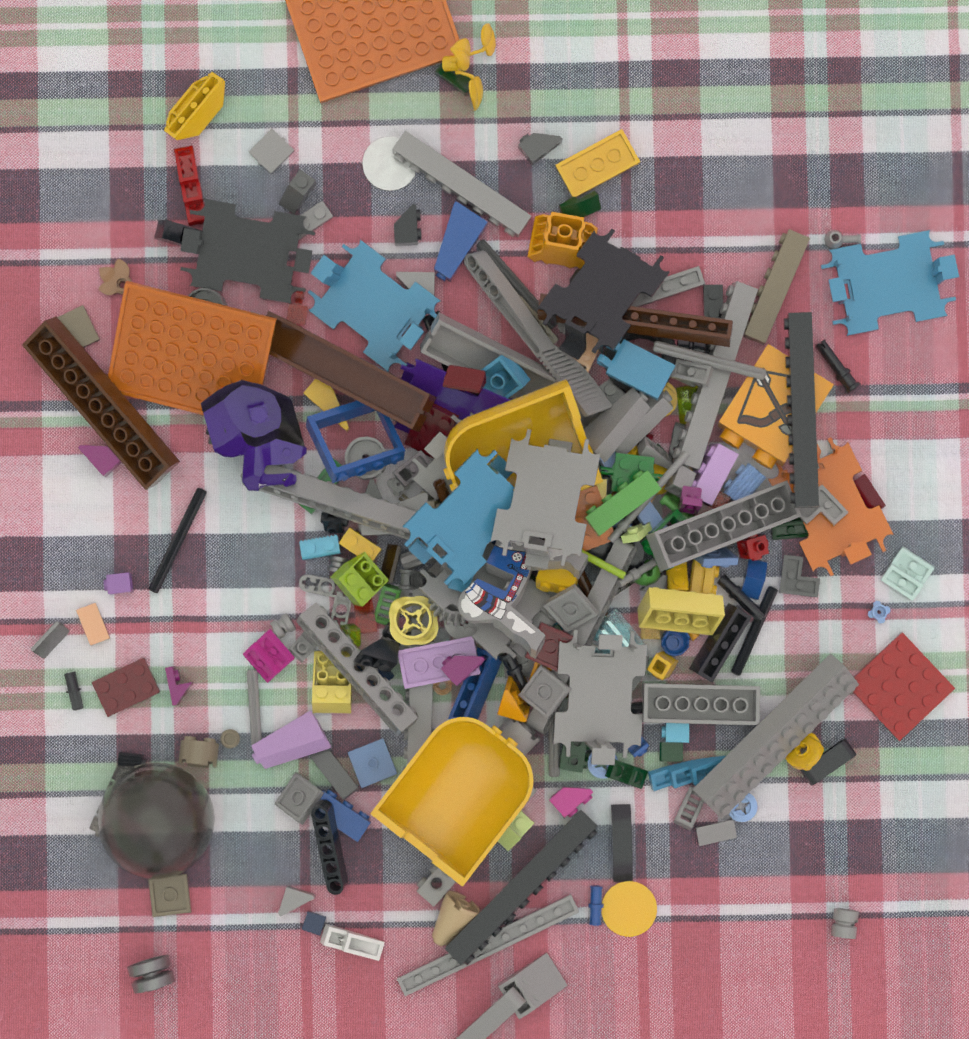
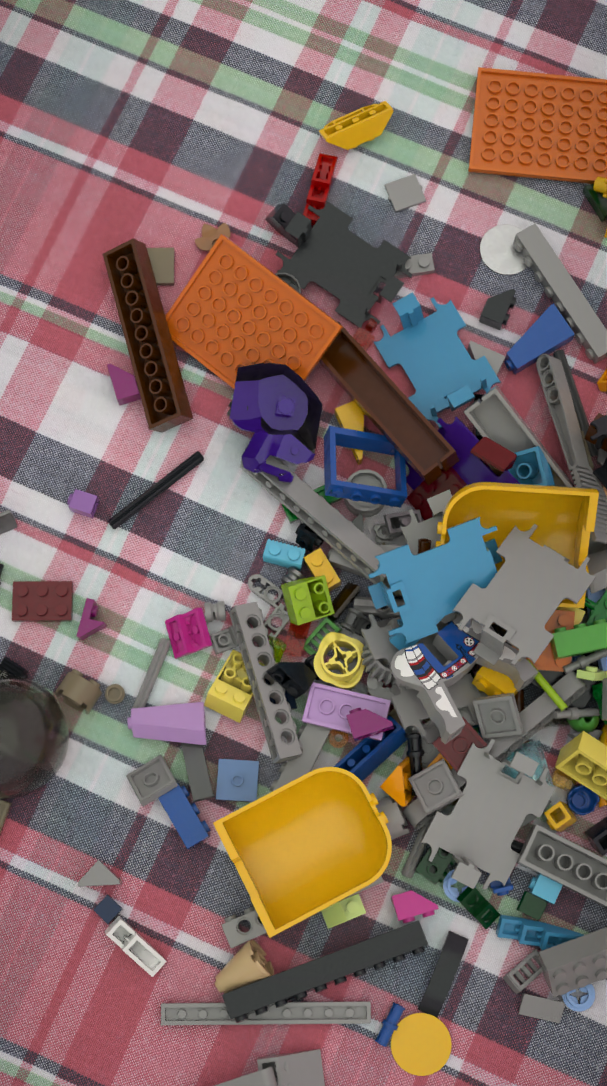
camera: 25 degrees right, 10 degrees down
(93, 624) = (41, 529): light nougat slope -> none
(297, 191) = (413, 234): dark grey slope -> none
(329, 838) = (151, 847): black beam -> none

